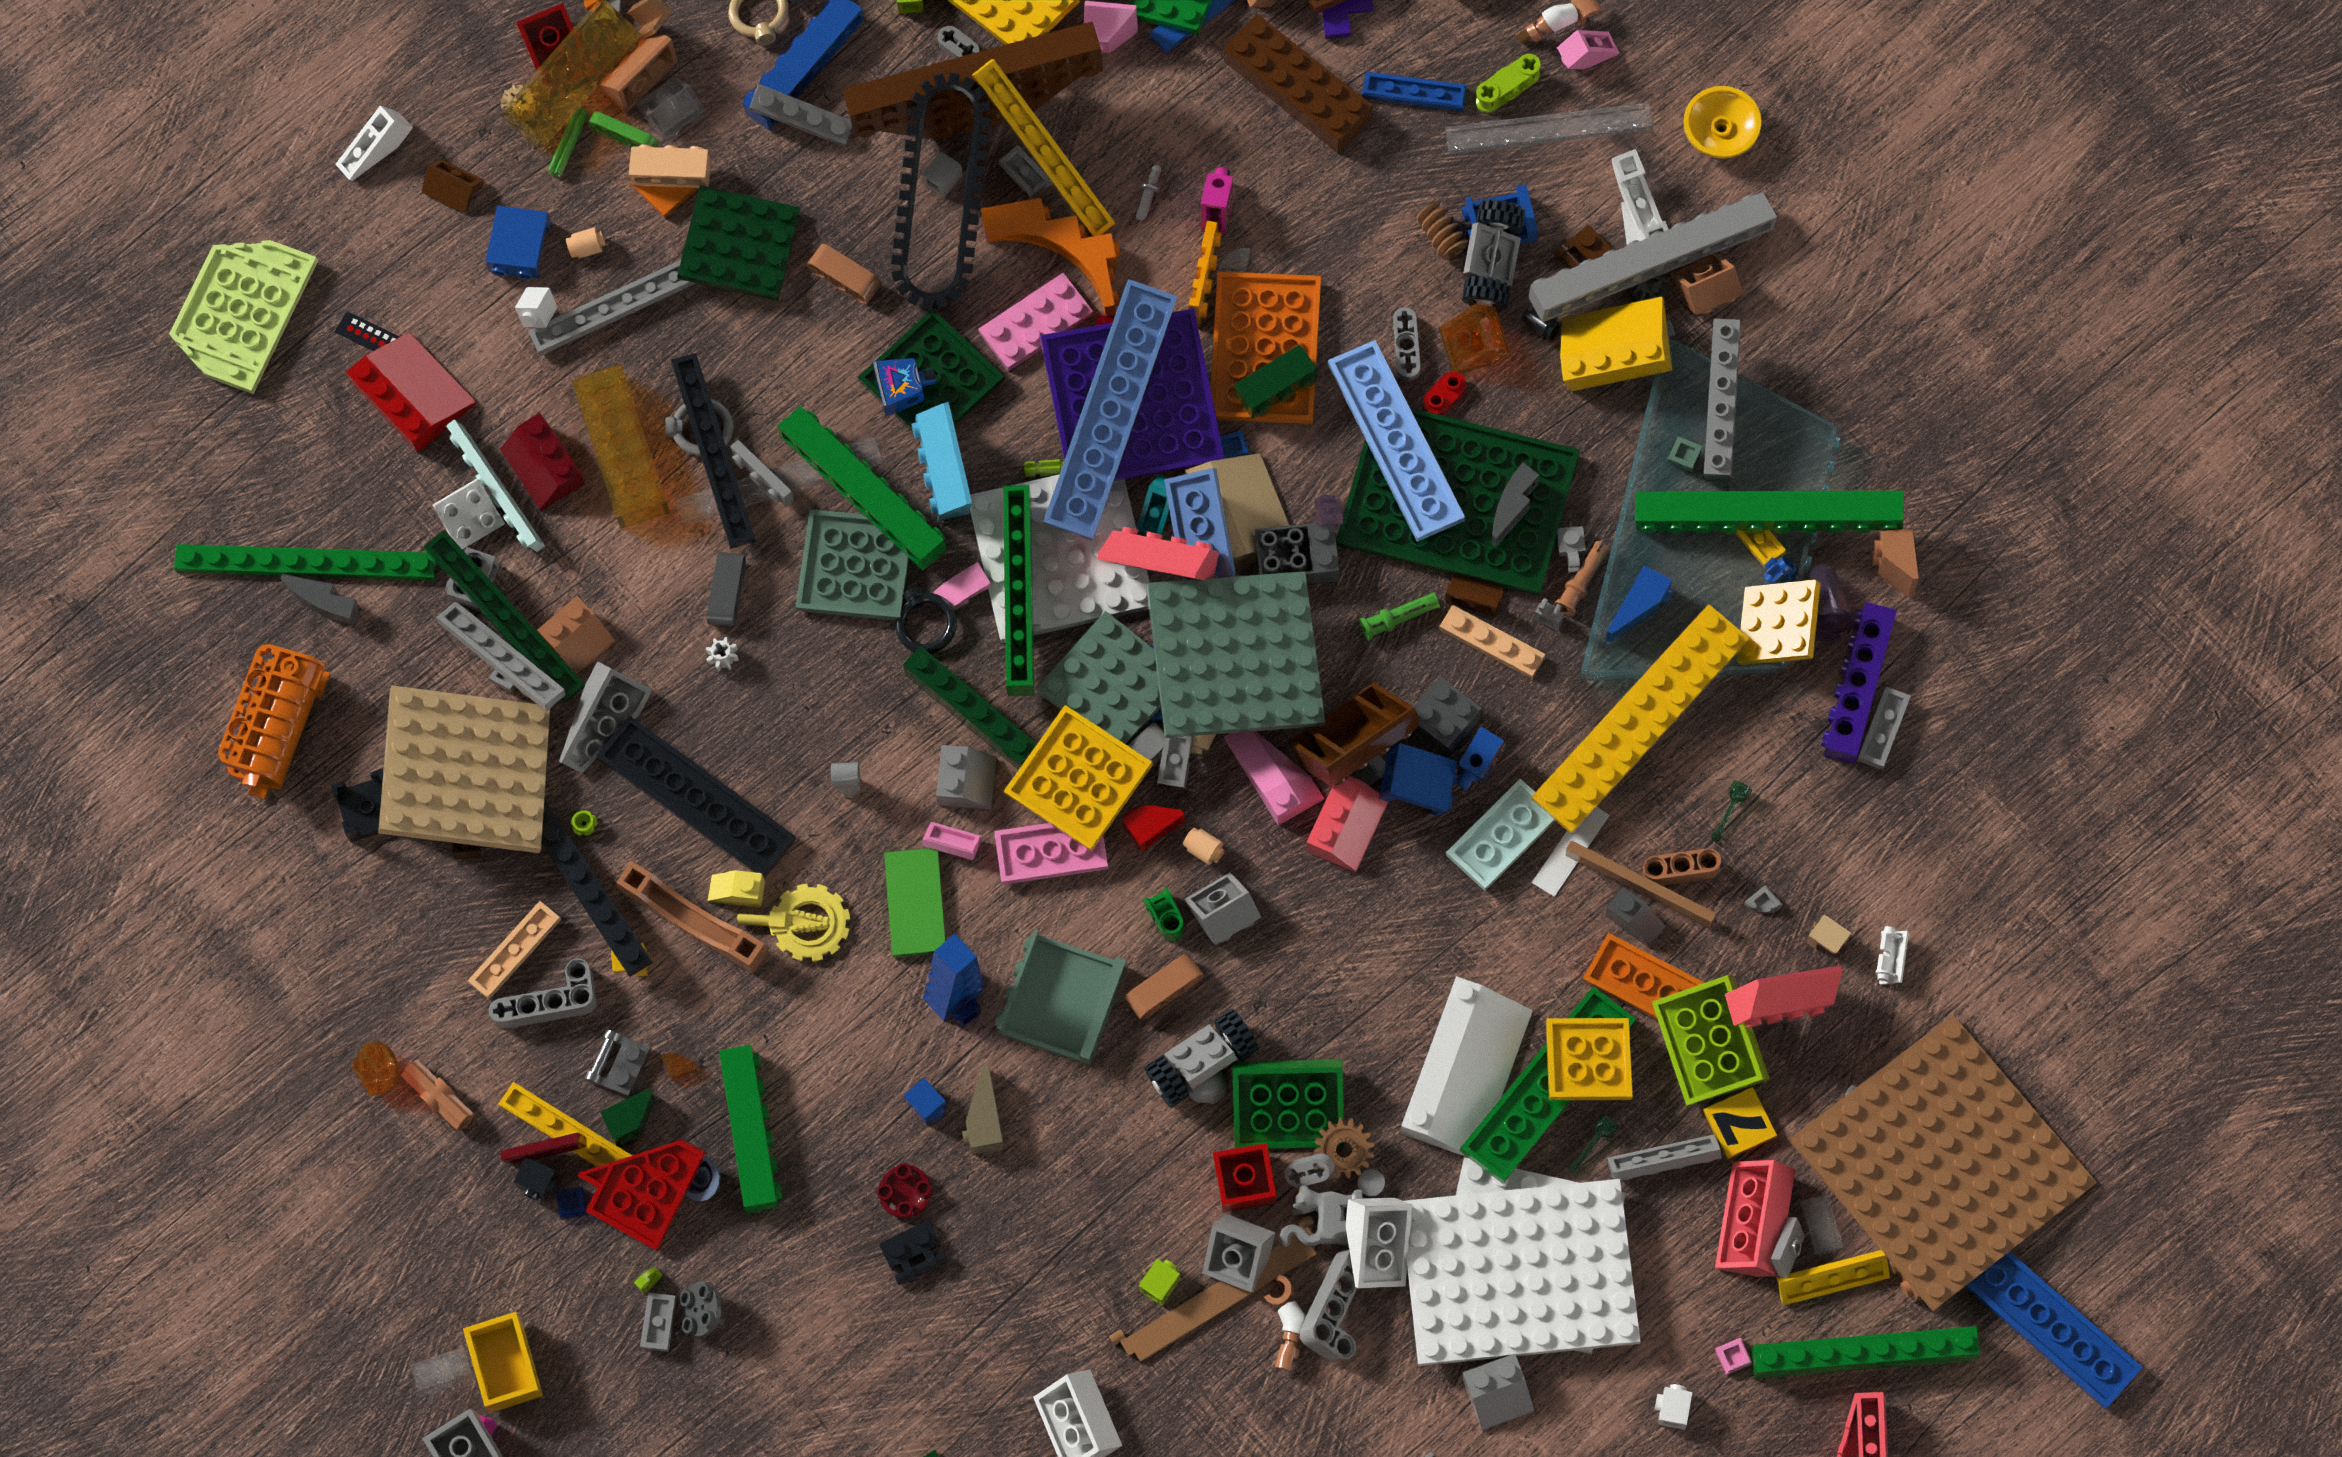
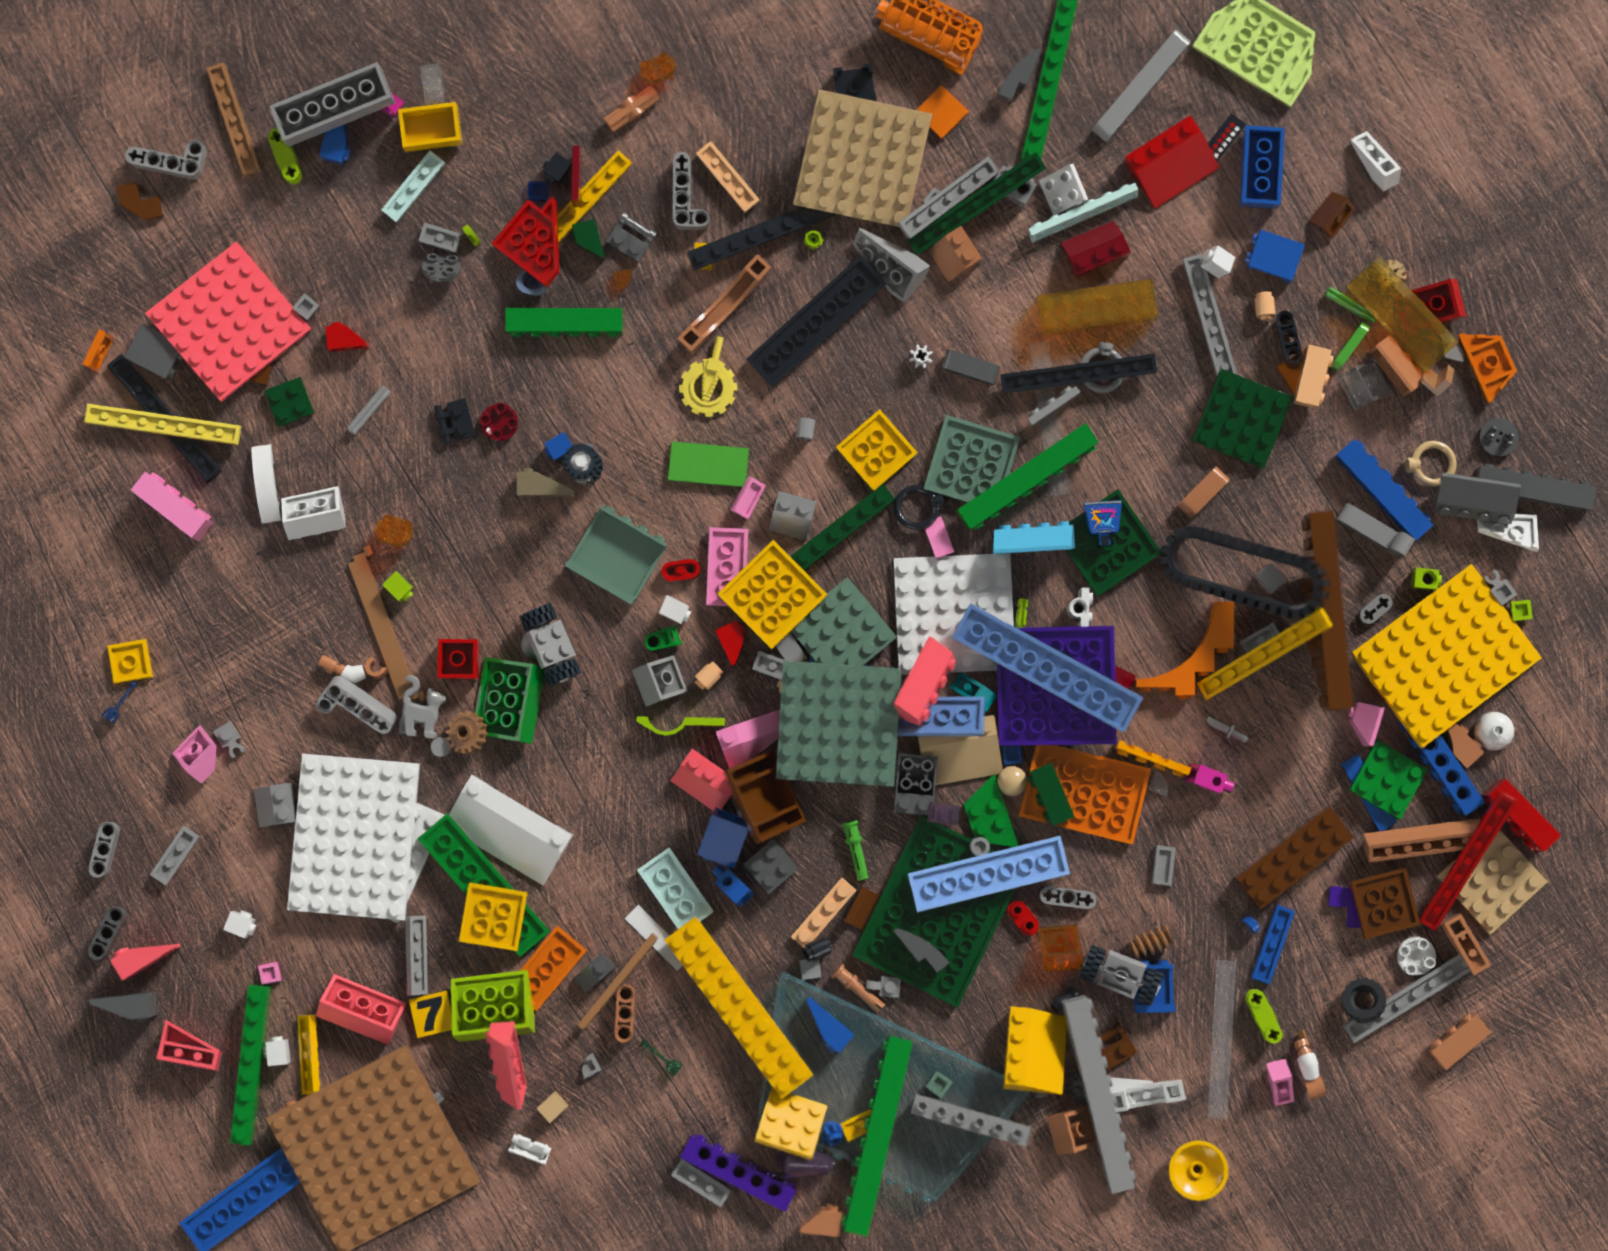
camera: 95 degrees right, 15 degrees up
(314, 445) = (1141, 85): none -> light grey beam
(374, 688) = (945, 111): none -> orange tile
(402, 276) = (1261, 167): none -> blue brick
(591, 1373) = (413, 186): none -> light aqua plate
(637, 207) = (1288, 330): none -> black beam
(737, 889) = (741, 339): light yellow slope -> none
(801, 115) = (1337, 478): light grey plate -> none
(822, 1427) = (342, 338): none -> red slope
(858, 688) = (876, 450): none -> yellow plate
(861, 56) = (1374, 531): none -> light grey beam
(918, 1375) = (368, 410): none -> light grey axle
(944, 1051) = (583, 463): none -> black plate
(953, 978) = (638, 481): blue wedge -> none
(966, 1013) = (617, 486): clear blue tile -> none
(1018, 591) = (922, 576): green brick -> none
(1024, 390) = (1085, 600): none -> white plate
(1050, 309) = (1139, 627): bright pink plate -> none
(1066, 911) = (680, 570): none -> red plate
(1083, 1301) = (394, 531): none -> clear orange plate
(1122, 905) = (675, 610): none -> white slope
(1164, 986) = (610, 629): nougat beam -> none
(1237, 1252) = (407, 644): light grey slope -> none
(1268, 438) = (1012, 781): none -> tan hair
(1284, 912) = (688, 721): none -> lime piece
(1308, 1164) = (455, 705): light grey beam -> none
(1319, 459) = (989, 815): none -> green wing
(1340, 238) = (1163, 865): none -> light grey tile
(1362, 459) = (979, 846): none -> light grey tile
(1378, 1241) = (393, 743): white slope -> none
(1393, 118) = (1251, 924): none -> blue tile
(1541, 637) = (817, 949): none -> black brick
(1549, 615) = (834, 959): light grey plate -> none
(1569, 644) = (810, 969): none -> light grey tile
(1604, 1128) = (447, 918): clear green hinge -> none
(1788, 1247) = (333, 1027): light grey plate -> none
(1821, 1225) = (348, 1055): clear tile -> none
(1839, 1320) = (277, 1051): none -> white brick

